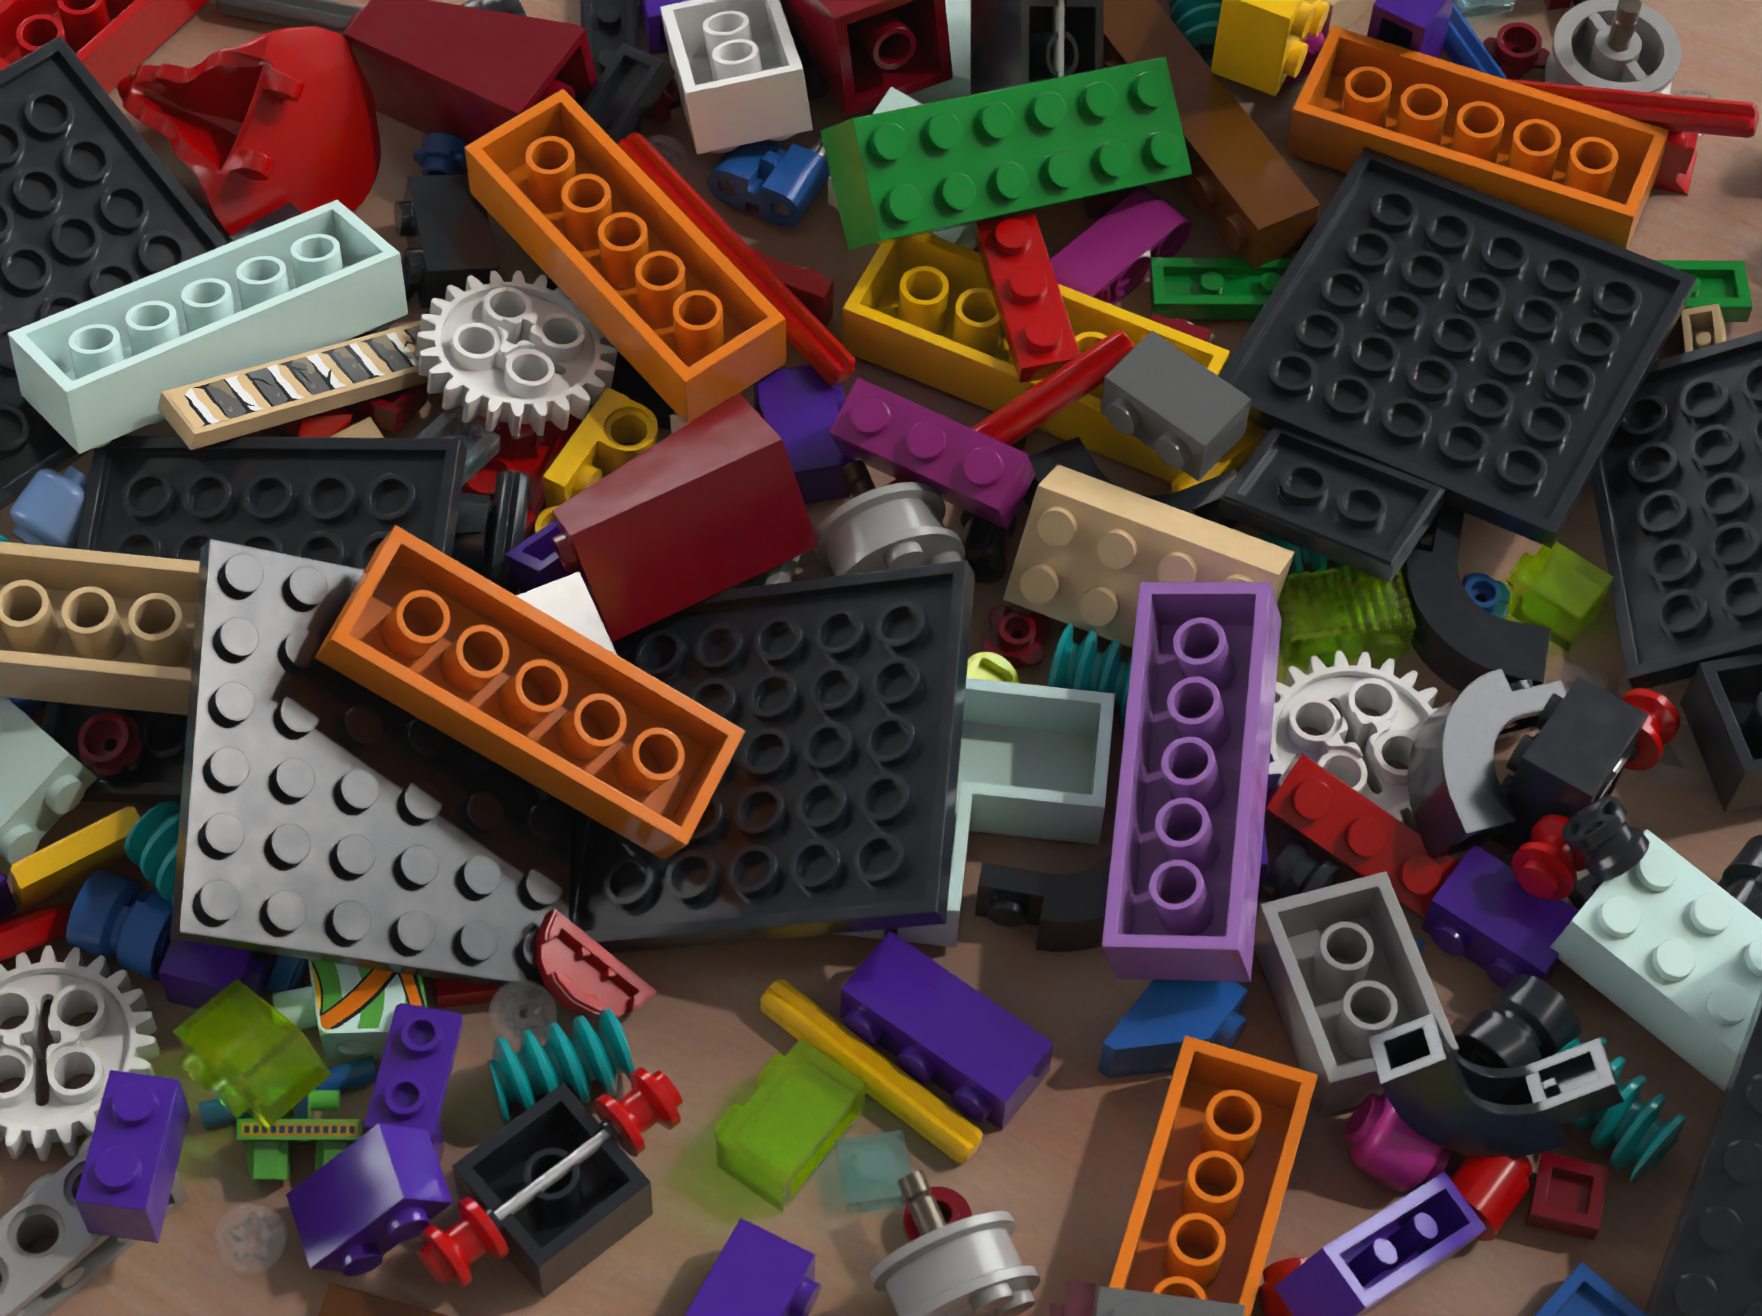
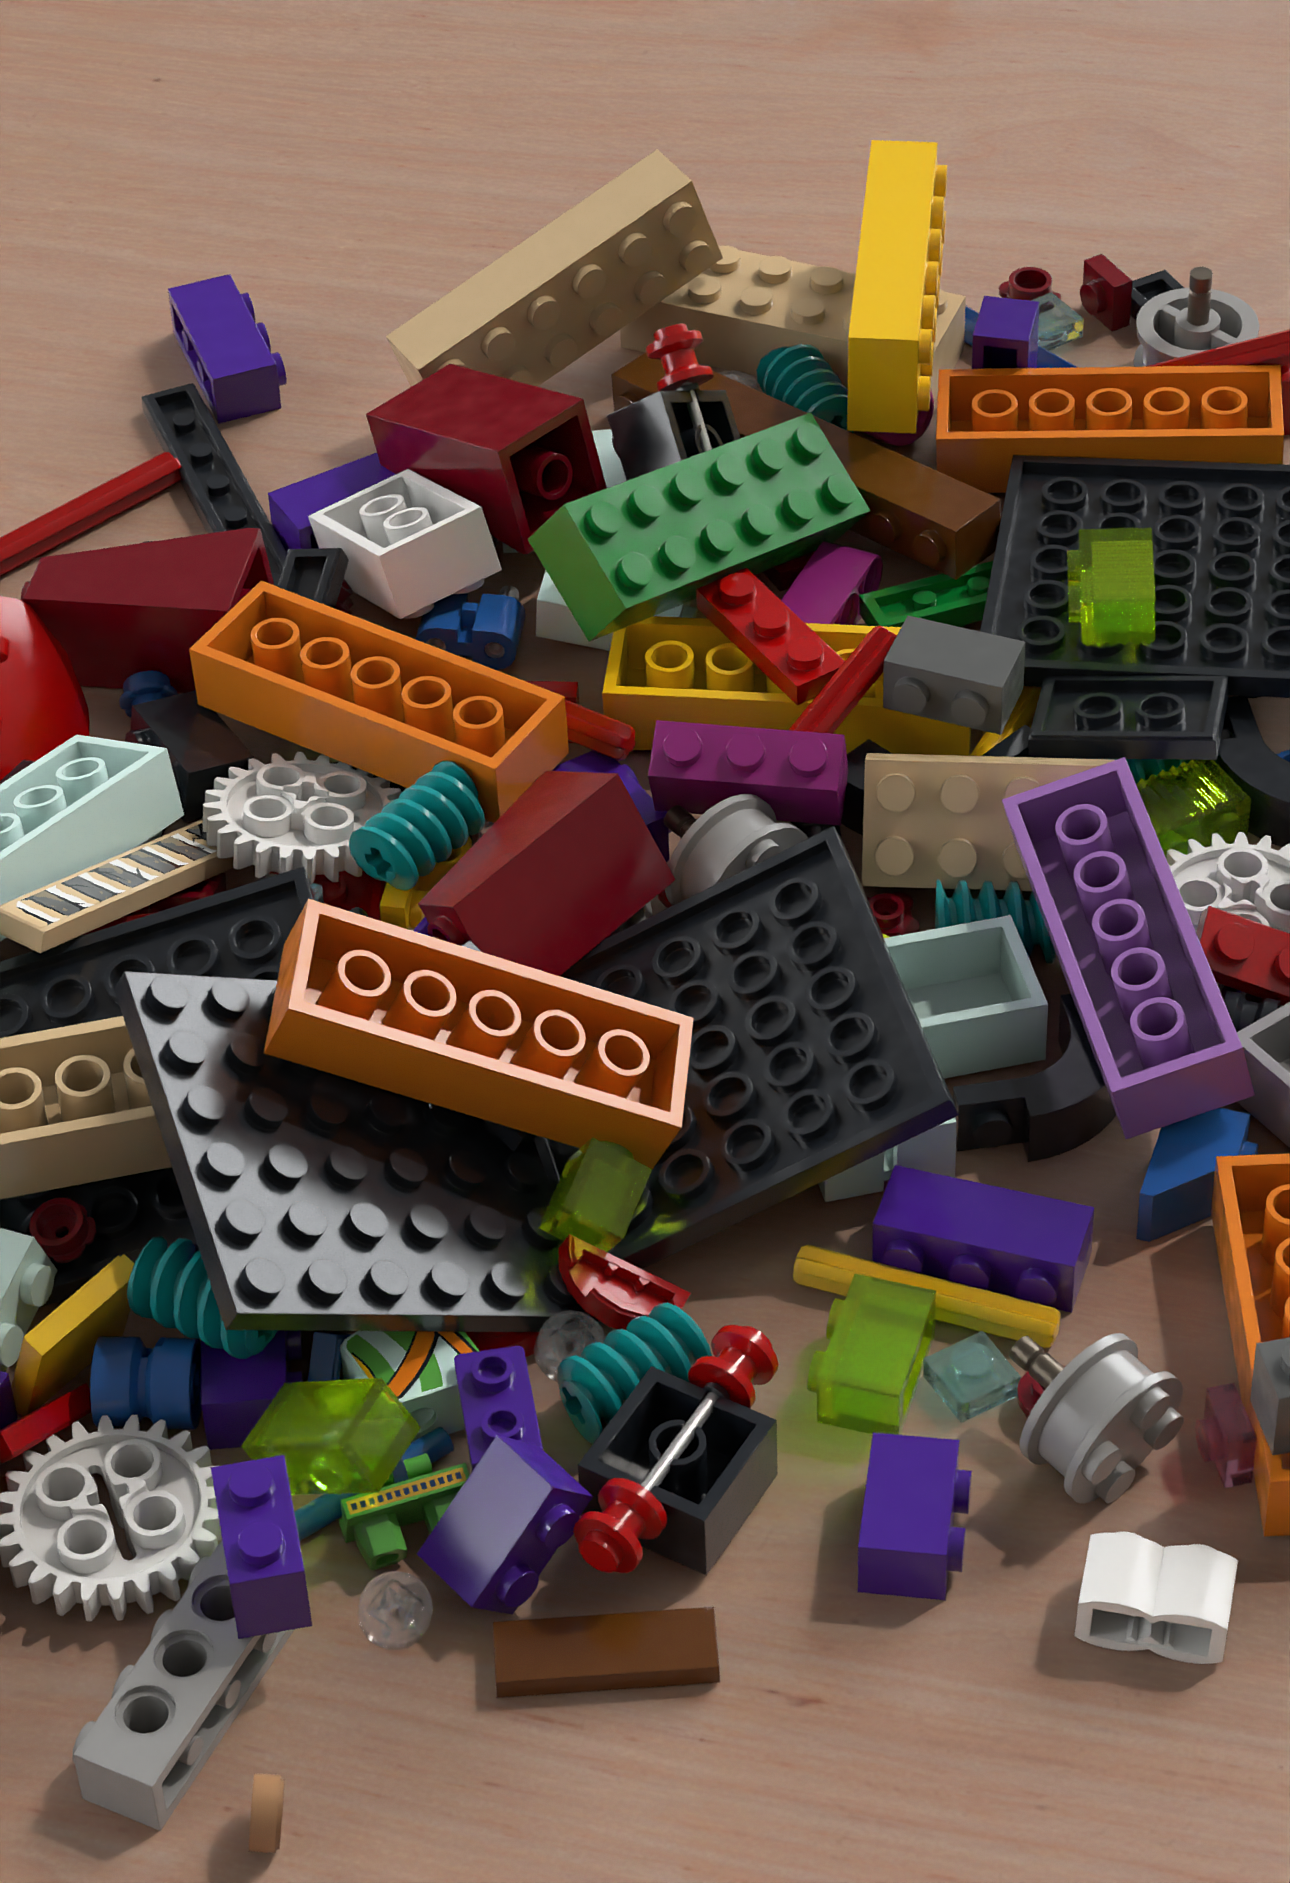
camera: 15 degrees left, 15 degrees down
(593, 878) = (596, 1195): none -> clear neon green brick
(602, 410) = (419, 827): none -> teal piece
(1377, 350) = (1113, 586): none -> clear neon green brick
(1517, 49) = (1103, 353): dark red plate -> none

